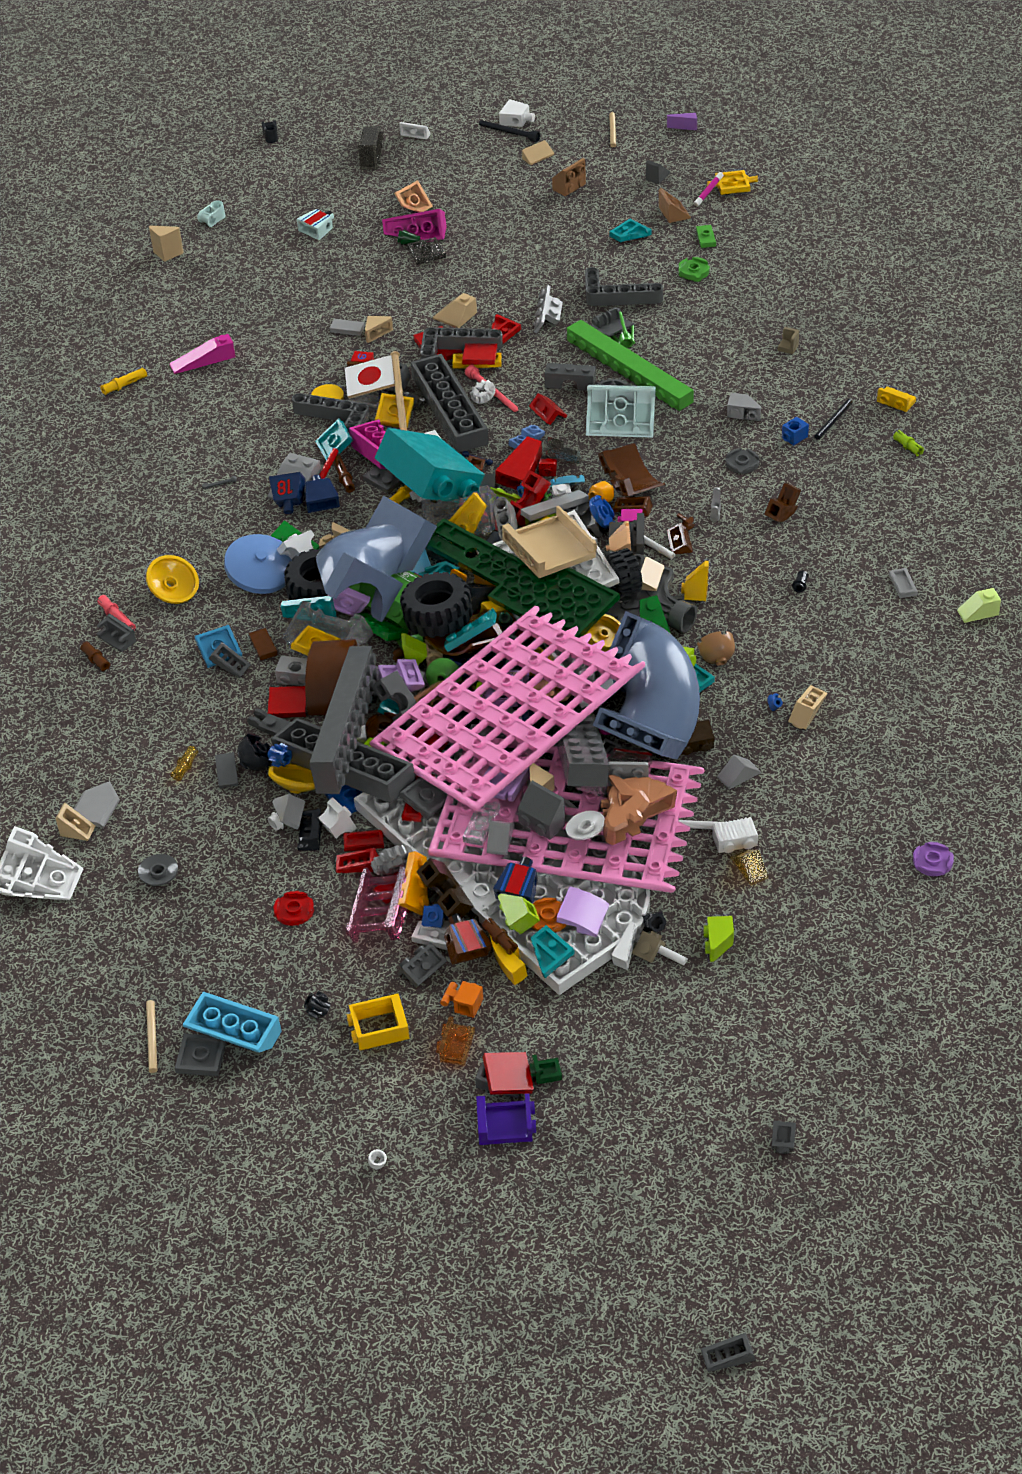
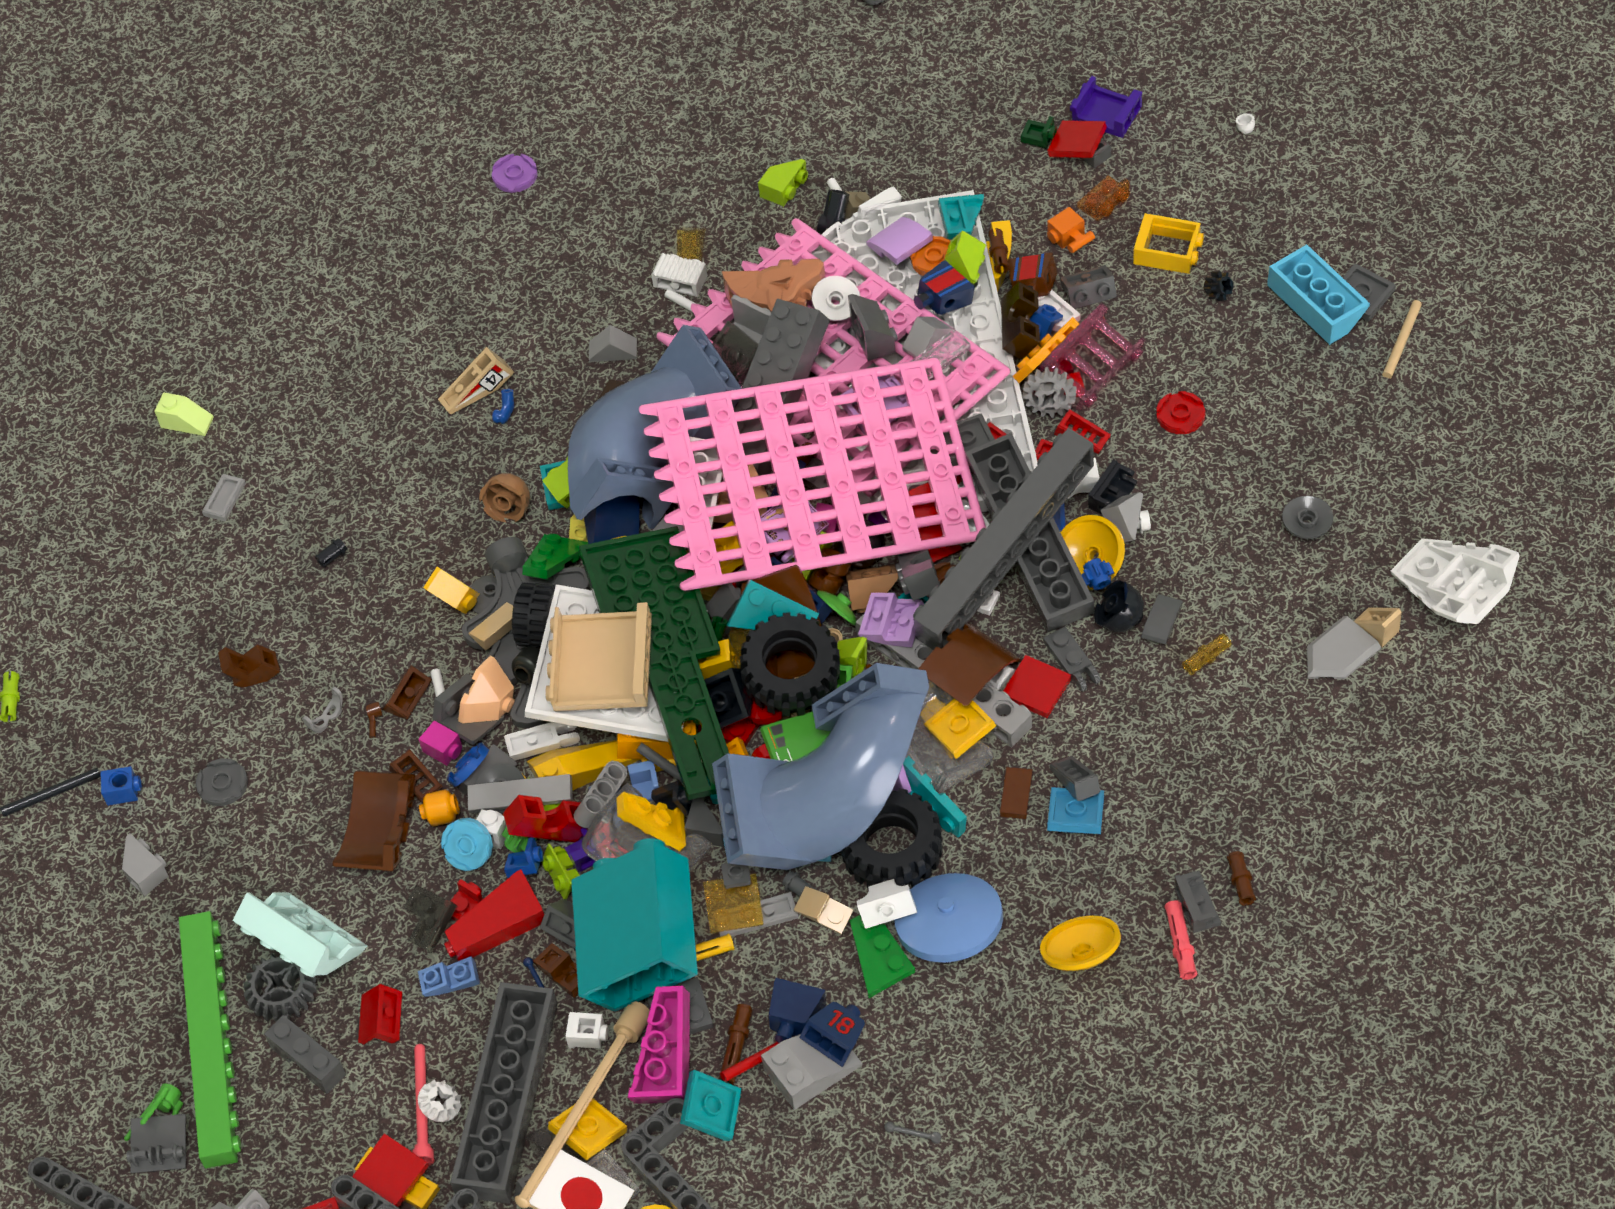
camera: 145 degrees left, 10 degrees up
(541, 777) = (847, 362): tan slope -> none

